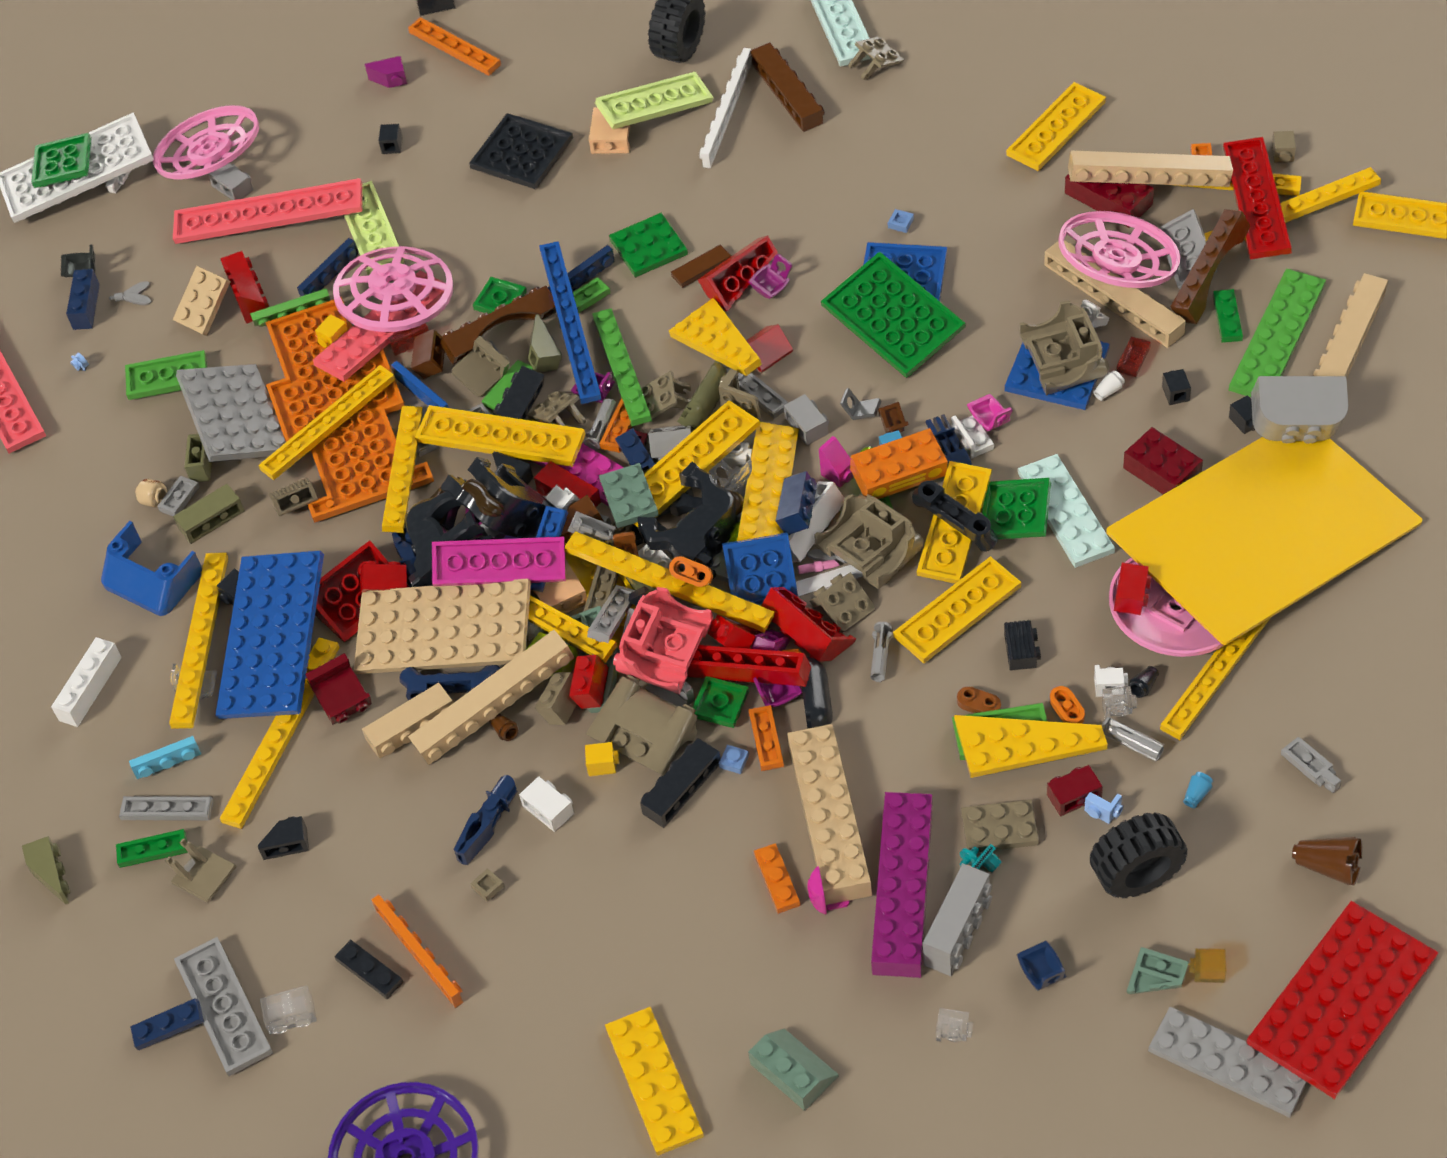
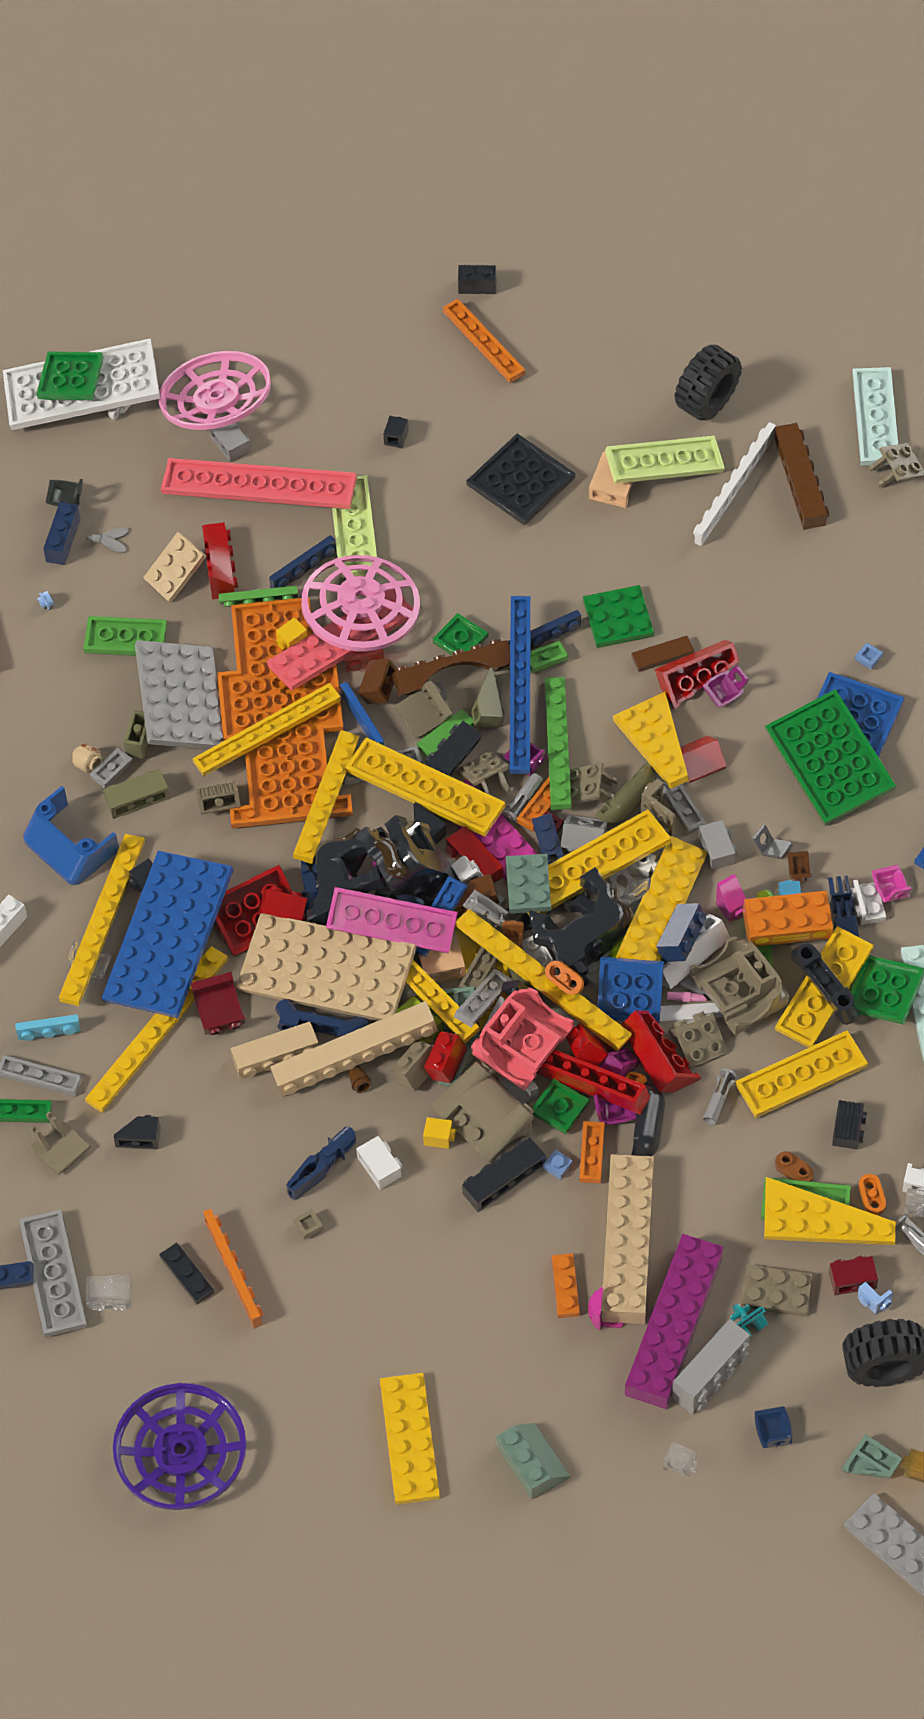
camera: 10 degrees right, 5 degrees up
(387, 72) = (410, 354): magenta slope -> none

